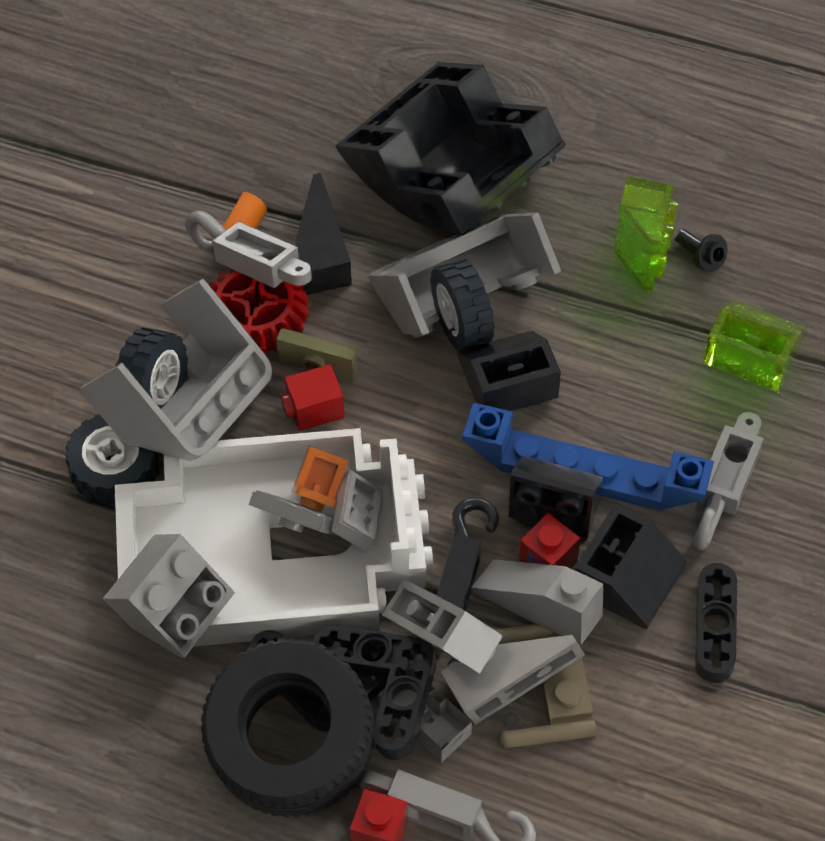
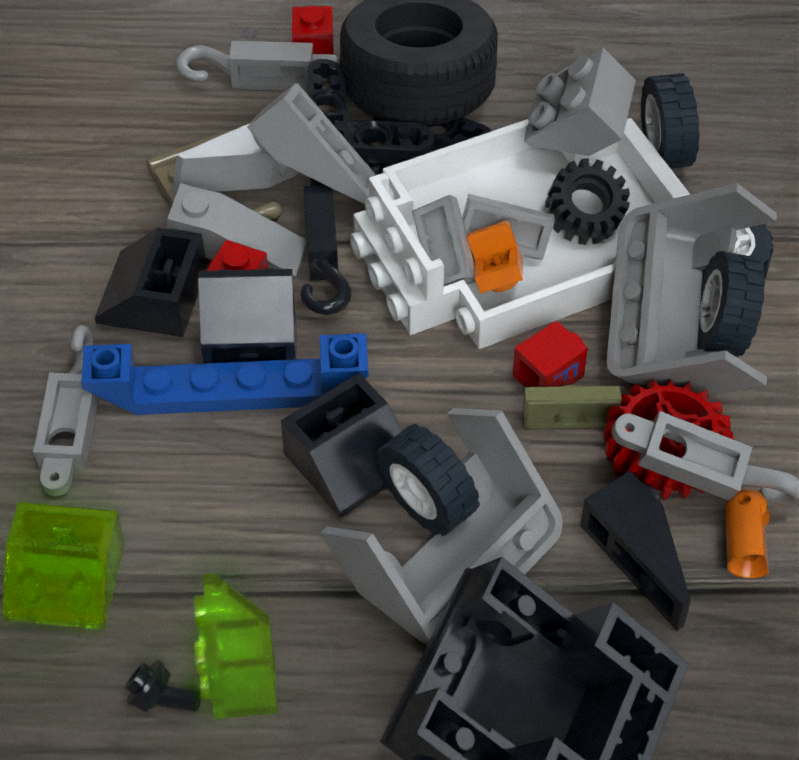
camera: 160 degrees right, 5 degrees down
(86, 574) = (671, 118): none -> black wheel
(207, 505) = (596, 181): none -> black tyre
(705, 636) = (62, 290): black beam -> none

